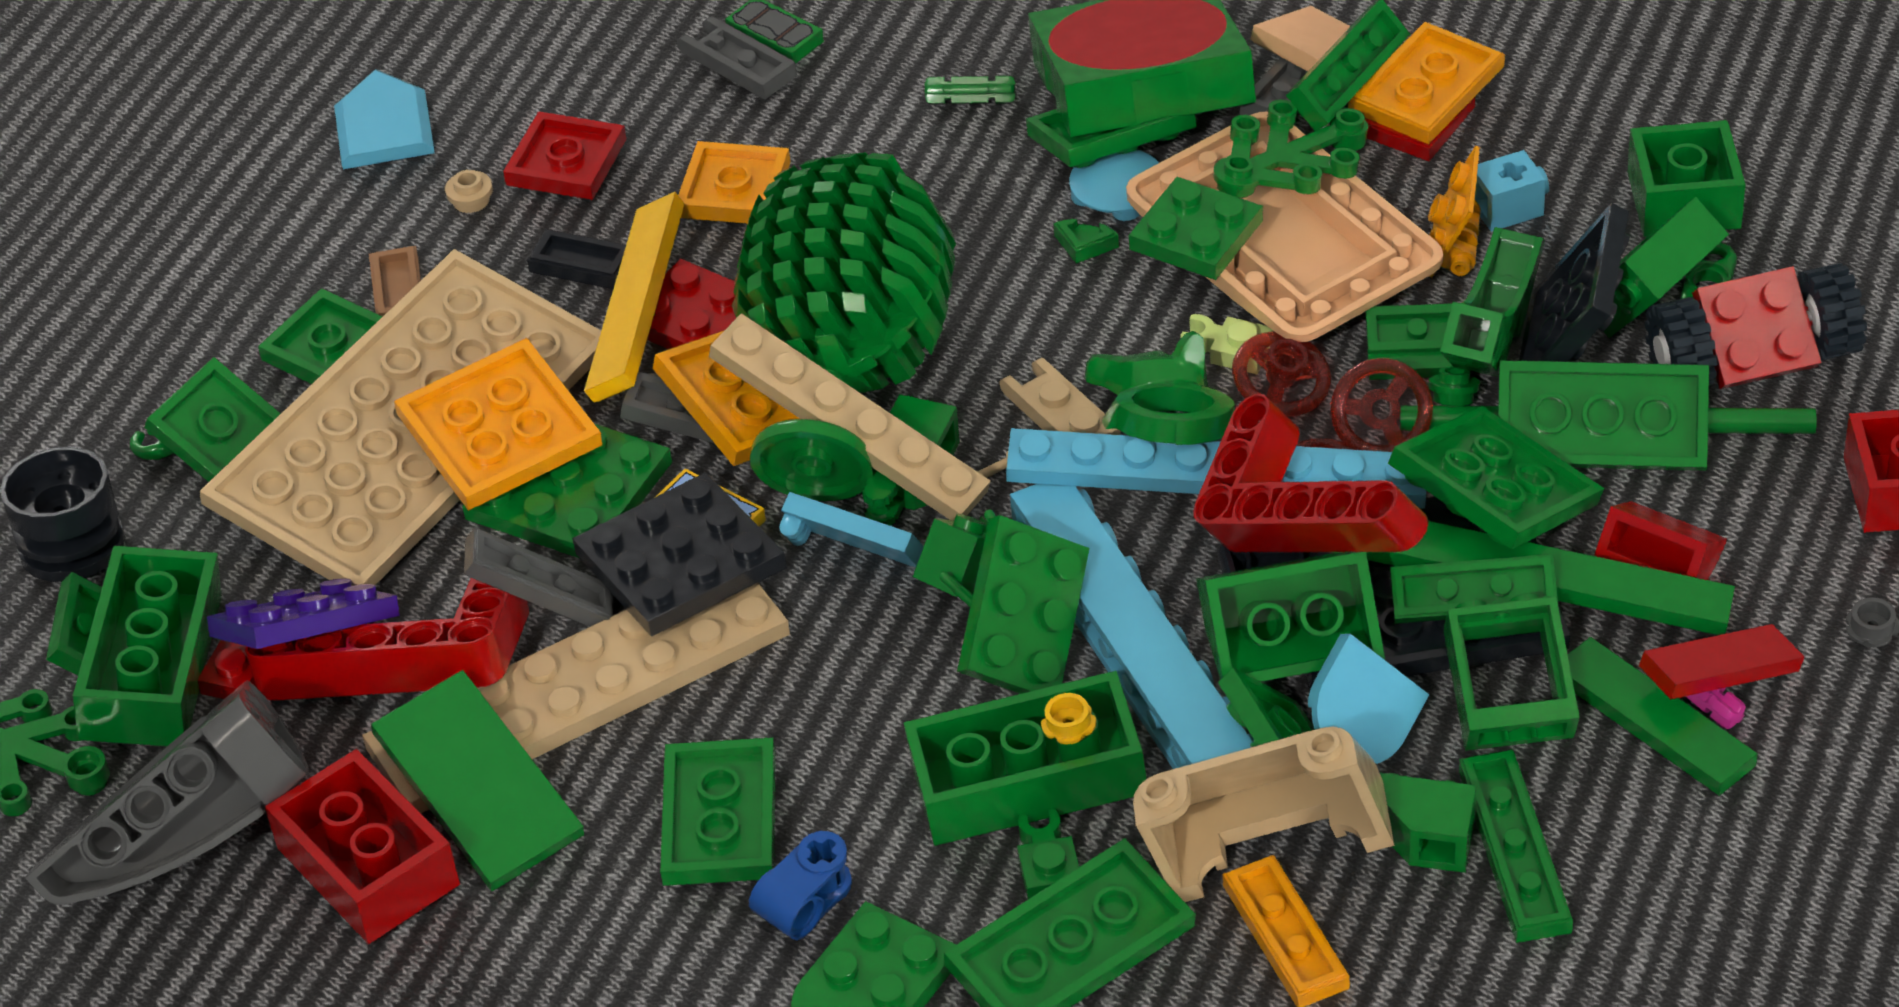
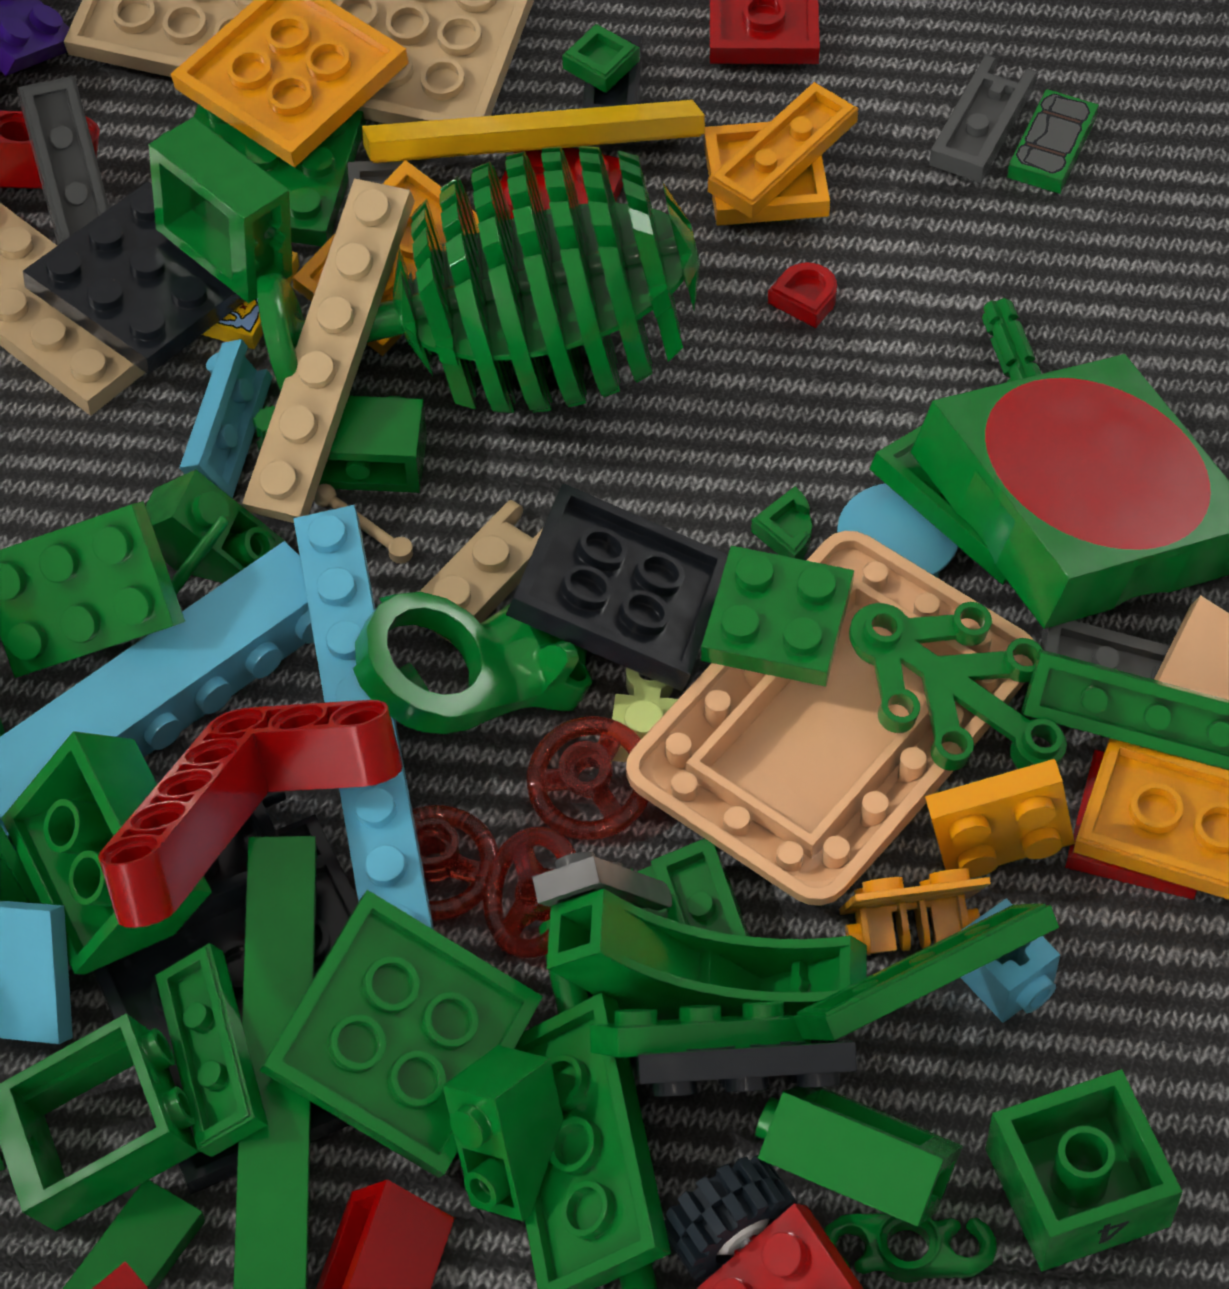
camera: 70 degrees right, 10 degrees up
(567, 250) = (601, 58): none -> green tile
(663, 422) = (200, 165): none -> green window
(725, 156) = (782, 150): none -> light orange tile
(1129, 312) = (620, 587): none -> black plate
(1416, 150) = (1002, 819): none -> light orange plate
(1423, 336) = (585, 873): none -> dark grey hinge
(1540, 191) = (924, 971): none -> green tile
(1553, 310) = (696, 1028): none -> green plate
(1584, 441) = (504, 1128): none -> green slope

